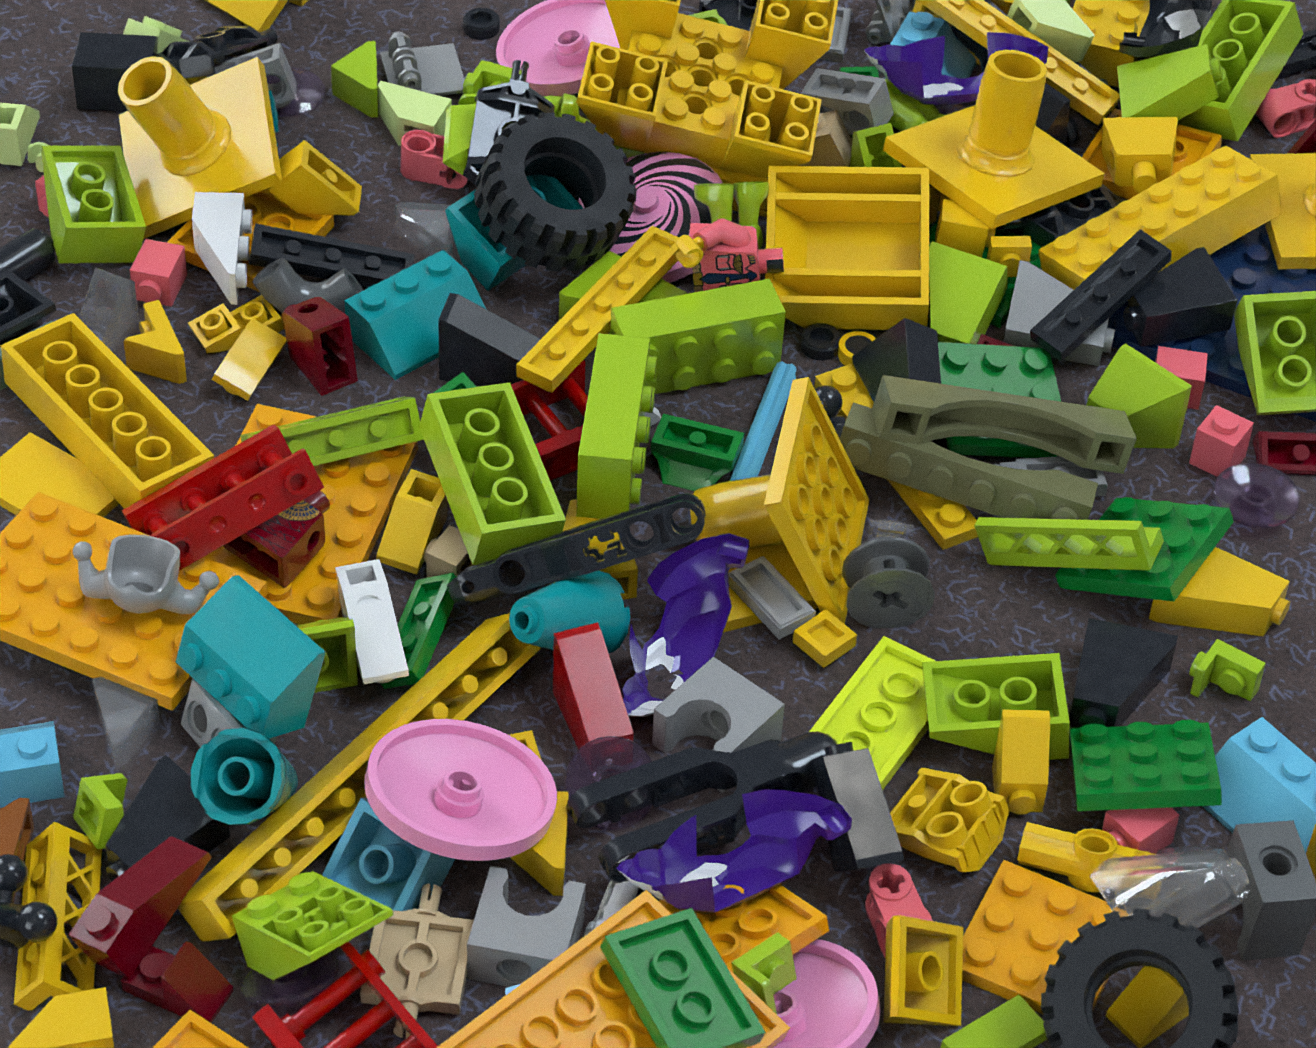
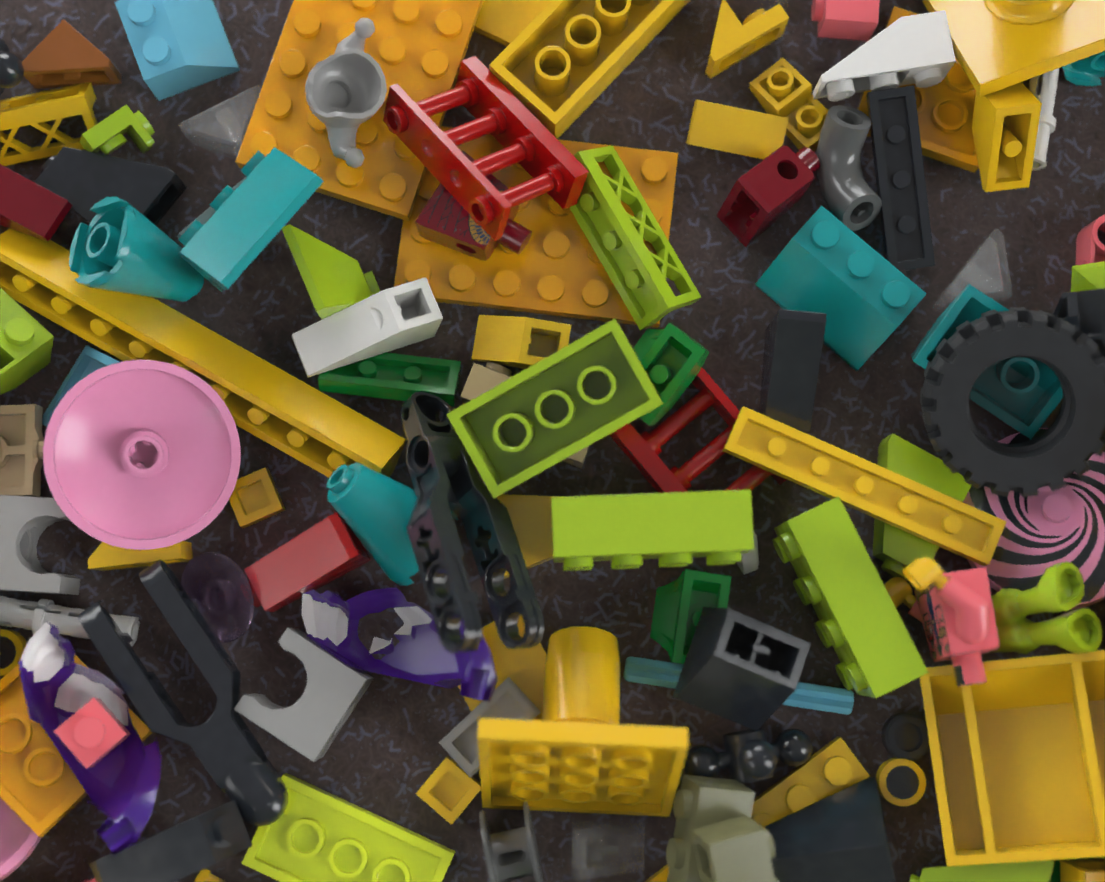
camera: 85 degrees right, 35 degrees up
(731, 855) = (92, 732): none -> coral brick
(740, 401) = (740, 667): none -> black slope

